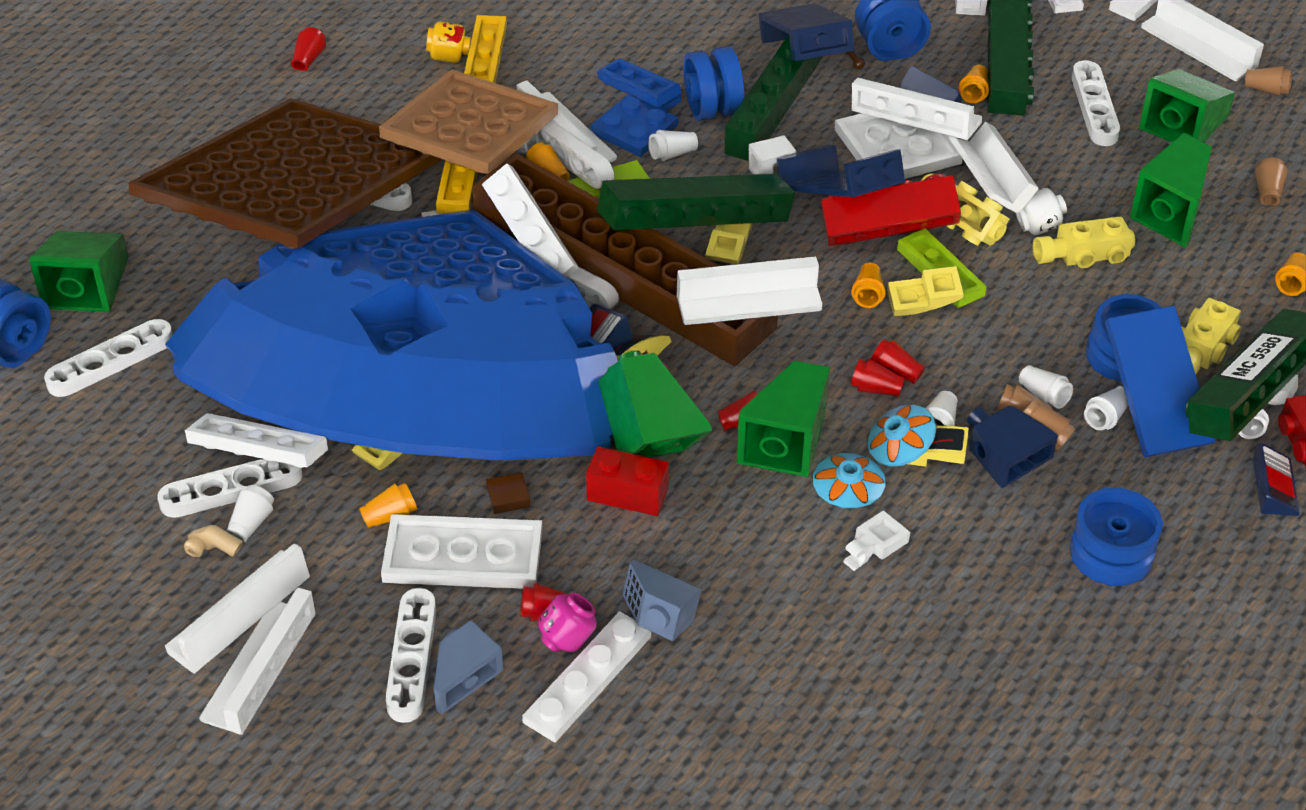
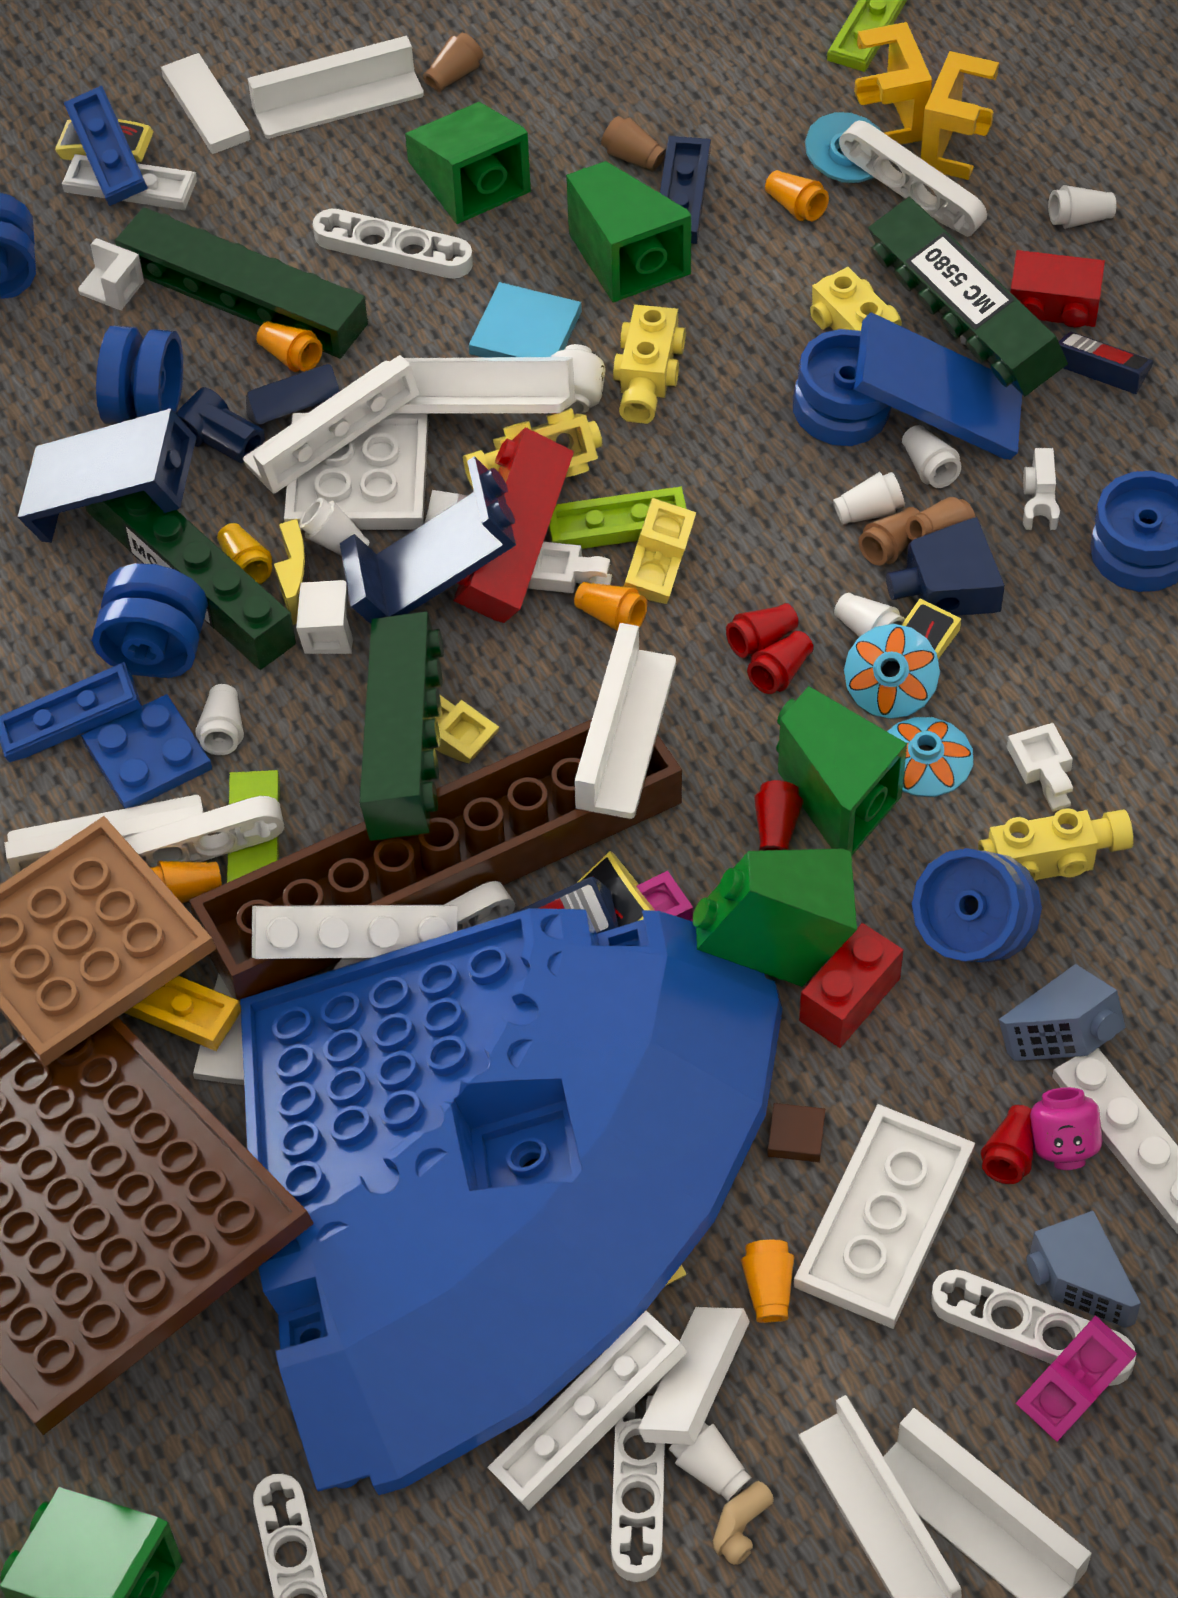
camera: 65 degrees left, 10 degrees up
(299, 483) = (693, 1383): none -> white tile
(374, 682) = (1076, 1378): none -> dark pink slope
(714, 518) = (976, 905): none -> blue wheel
(791, 551) = (1057, 851): none -> light yellow brick
(798, 115) = (245, 551): none -> yellow cone
(806, 136) = (295, 569): none -> light yellow slope
(839, 133) = (328, 525): none -> white cone
(885, 252) = (563, 566): none -> white plate
(890, 67) = (219, 427): none -> dark blue piece
(1076, 179) = (524, 324): none -> medium azure tile
(1124, 472) = (1041, 484): none -> white plate
(1251, 217) = (686, 176): none -> dark blue plate

